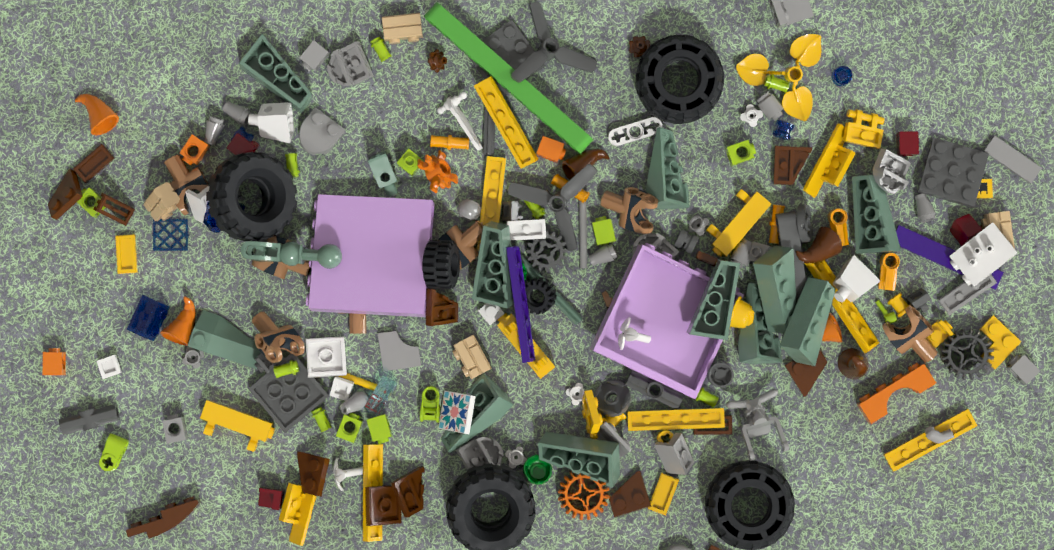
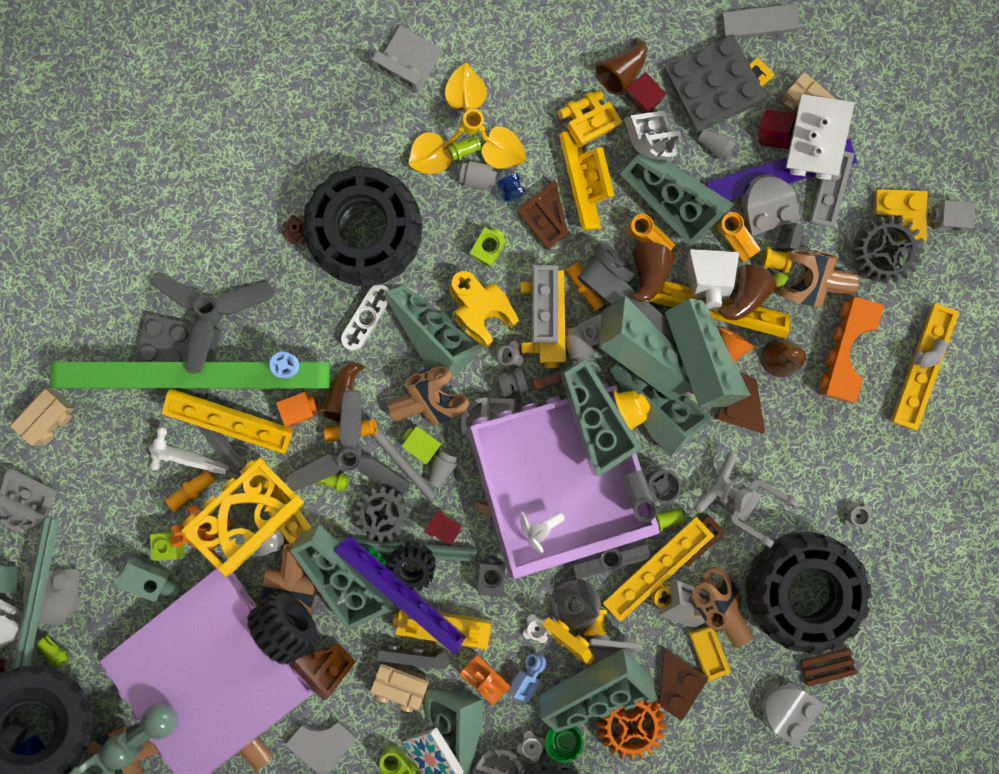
camera: 40 degrees left, 0 degrees up
(317, 123) = (36, 591): none -> sand green axle
(380, 49) = (40, 457): lime pin -> none
(437, 60) = (106, 420): reddish brown plant -> none
(451, 202) = (236, 553): none -> yellow fence
(491, 313) = (381, 625): white plate -> none
(496, 348) = (414, 656): none -> dark grey plate
(510, 211) = (312, 507): dark grey tile -> none
(523, 395) = (484, 679): none -> orange hips
(527, 229) = (342, 510): white panel -> none
(544, 418) = (527, 682): none -> light blue plate
(568, 343) = (491, 588): none -> dark grey brick
(571, 119) = (279, 363): none -> light blue wheel
(574, 290) = (444, 527): none -> dark red panel
(694, 471) = (721, 609): none -> medium nougat connector
(703, 365) = (638, 493): none -> dark grey piece
(705, 180) = (479, 304): none -> yellow piece
(744, 213) = (545, 304): none -> light grey tile
(756, 115) = (464, 207): white plate -> none
(816, 486) = (865, 516): none -> light grey plate
(843, 72) = (521, 79): clear blue wheel -> none
(869, 309) = (752, 290): none -> reddish brown hat
(907, 118) = (622, 69): none -> reddish brown hat
(923, 269) = (769, 204): none -> light grey slope
(942, 330) = (842, 248): yellow bracket -> none

